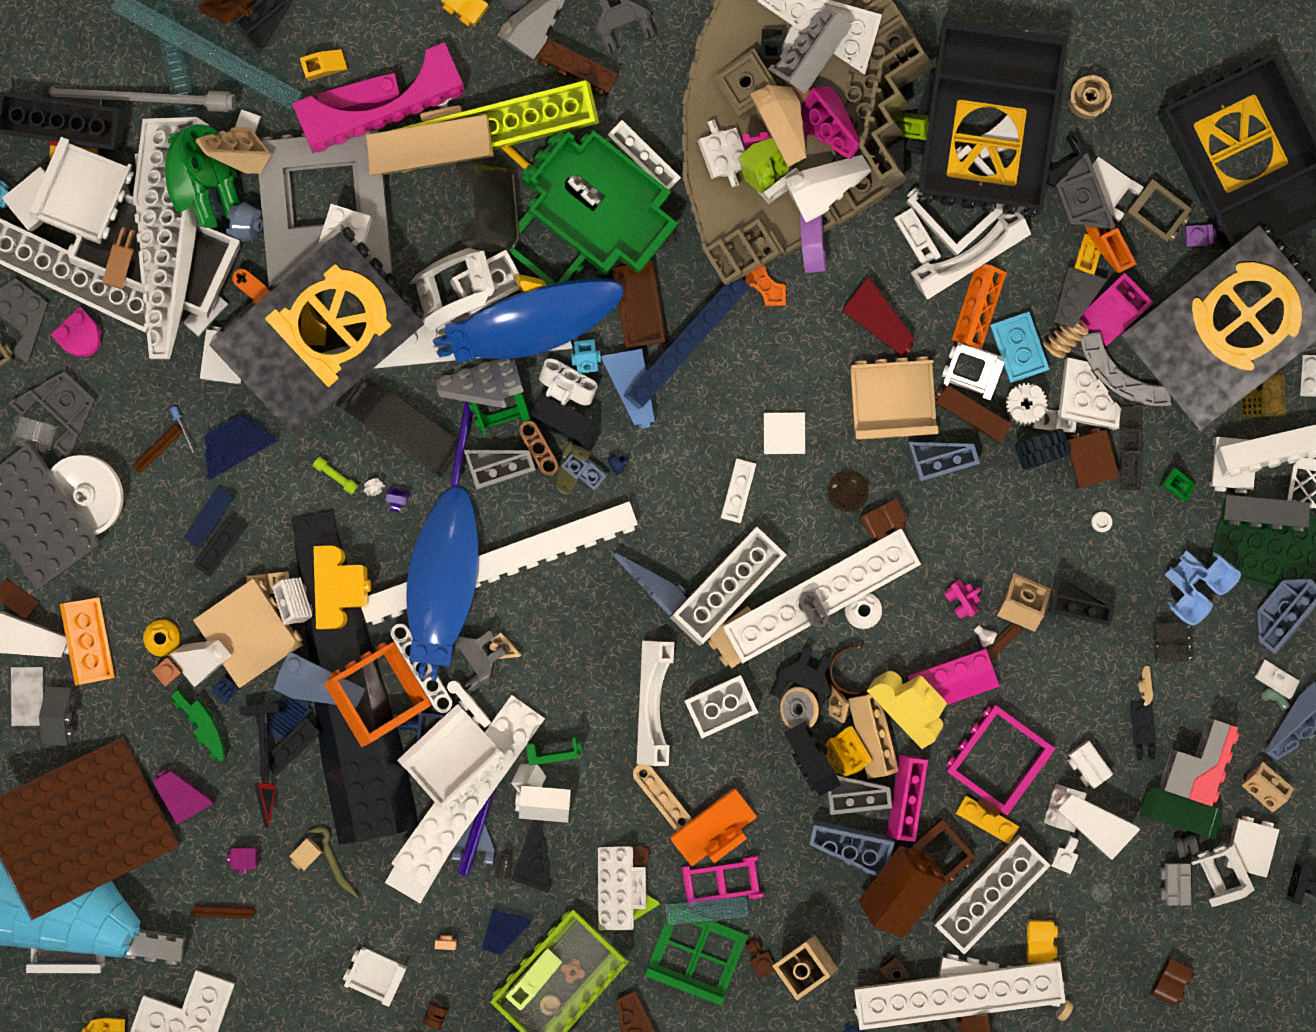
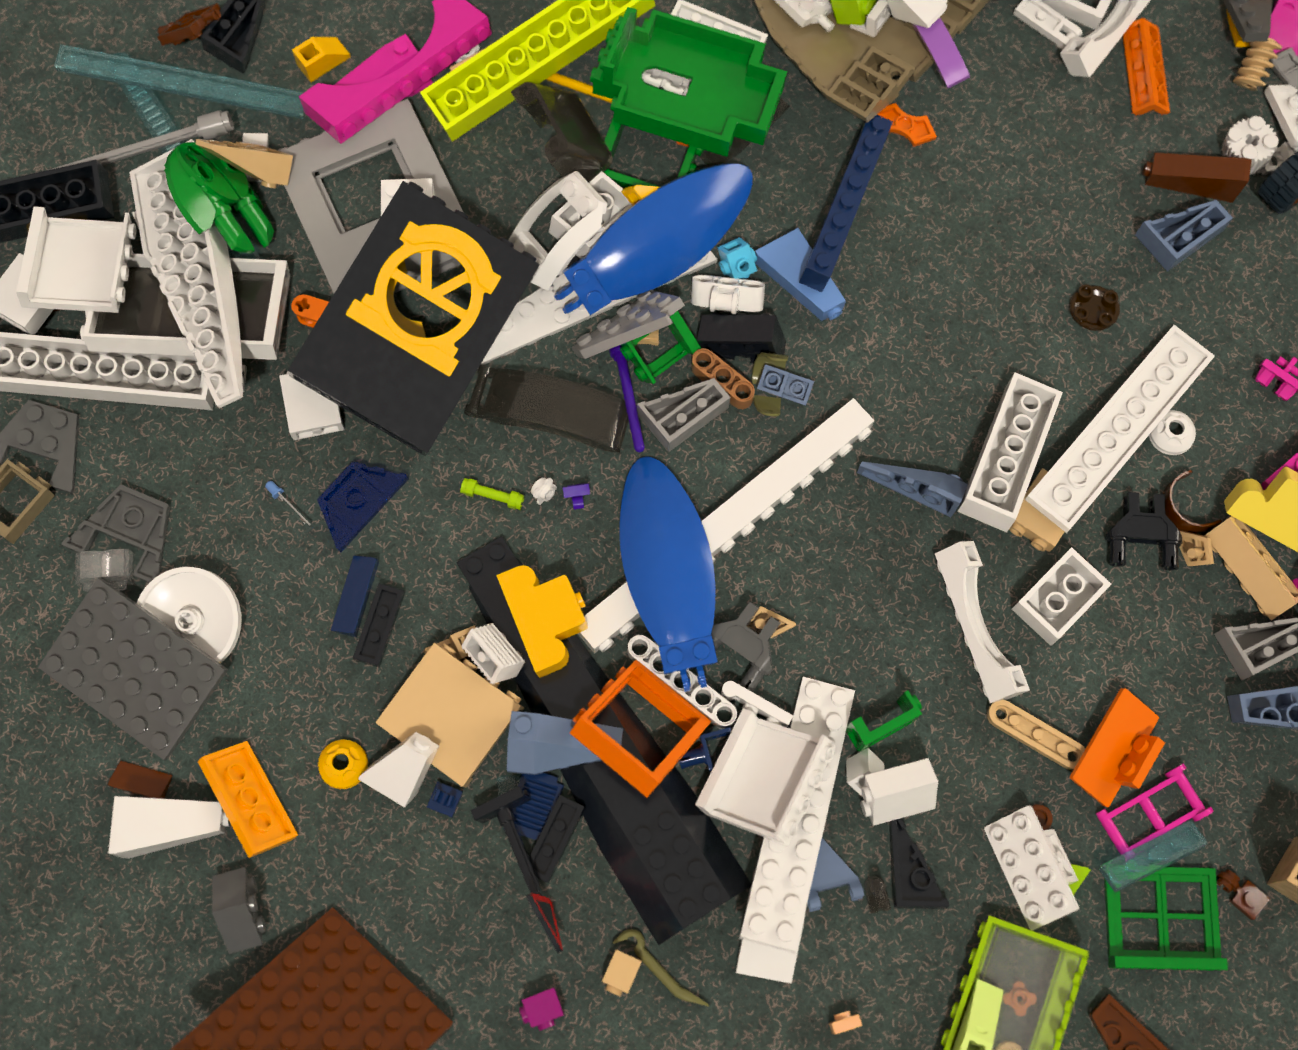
camera: 25 degrees left, 15 degrees down
(26, 695) = (189, 900): flat silver piece -> none
(78, 334) = (126, 438): dark pink slope -> none
(119, 261) = (146, 320): medium nougat arm -> none
(155, 450) = (264, 537): reddish brown axle -> none
(167, 671) = (364, 800): nougat brick -> none
(180, 795) = (433, 956): magenta slope -> none
(199, 324) = (268, 371): white slope -> none
(208, 731) = (438, 858): green slope -> none
(245, 222) = (287, 242): sand blue cone -> none
(429, 145) = (473, 87): tan arch -> none
(474, 838) = (828, 875): dark purple axle -> none
(503, 930) = (910, 979): clear blue wing -> none
(617, 463) = (820, 366): dark blue tile -> none
(641, 306) = (777, 189): reddish brown slope -> none
(738, 490) = (970, 350): white tile -> none
(784, 433) = (994, 270): white tile -> none
(788, 705) = (1170, 567): light grey wheel -> none
(812, 758) = (1202, 617): black wedge -> none
(817, 606) = (1122, 441): dark grey beam -> none
(847, 753) = (1233, 598): yellow slope -> none
(876, 316) = (1046, 115): dark red slope -> none
(883, 519) = (1149, 322): reddish brown brick -> none
(893, 398) = (1098, 192): tan panel -> none
(989, 376) = (1194, 129): white window -> none
(1020, 346) = (1210, 94): medium azure plate -> none

